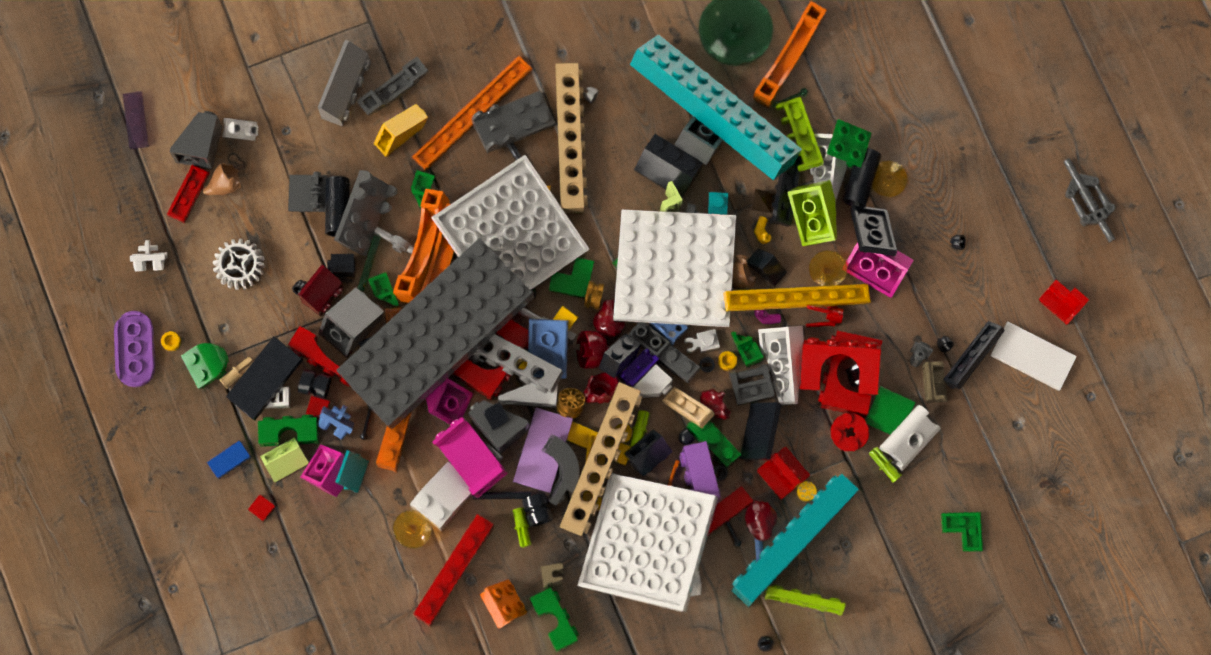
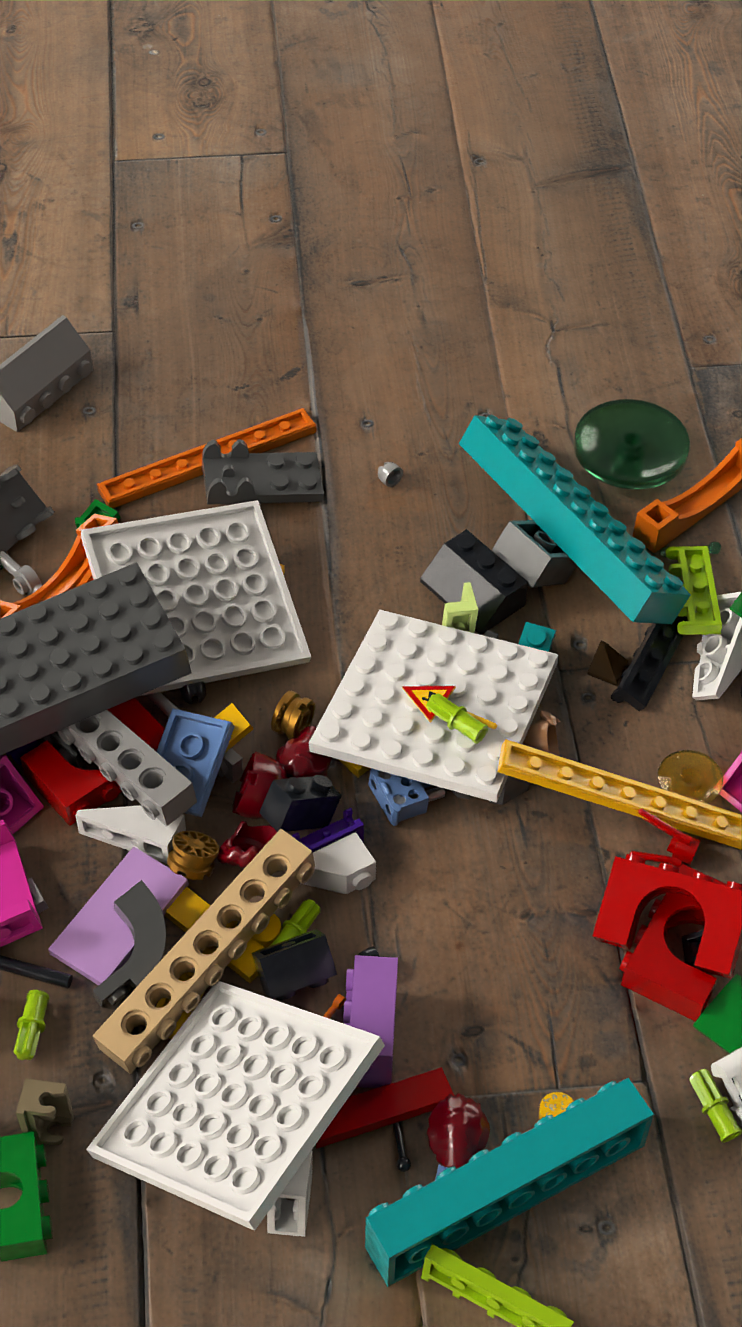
camera: 20 degrees right, 25 degrees down
(394, 87) = (111, 404): dark grey slope -> none
(400, 129) = (93, 445): yellow slope -> none
(496, 416) = (54, 818): black slope -> none
(503, 436) = (60, 851): dark grey slope -> none
(537, 509) = (68, 1002): black wheel -> none
(565, 73) = (337, 517): tan brick -> none
(574, 284) = (264, 697): green tile -> none
(668, 355) = (382, 832): dark grey slope -> none
(674, 272) = (421, 694): none -> piece
(688, 407) = (388, 910): tan tile -> none
(693, 283) = (457, 718): none -> lime axle
(705, 341) = (453, 832): white plate -> none
(707, 368) = (445, 857): black hinge -> none
(713, 401) = (434, 922): dark red hair -> none
(717, 443) = (425, 994): green arch -> none
(723, 474) = (403, 1028): black hinge -> none
(727, 361) = (480, 869): yellow tile -> none
(747, 349) = (520, 861): green slope -> none
(753, 390) = (510, 923): dark grey plate -> none
(760, 231) = (592, 702): yellow arm -> none
(760, 431) = (502, 983): black tile -> none
(766, 318) = (564, 823): magenta arm -> none
(767, 266) = (590, 747): black slope -> none
(783, 472) = (522, 1066): red bracket -> none
(784, 358) = (577, 878): white wedge -> none
(814, 212) = (688, 688): lime slope -> none
(839, 435) = (663, 1053): red plate -> none

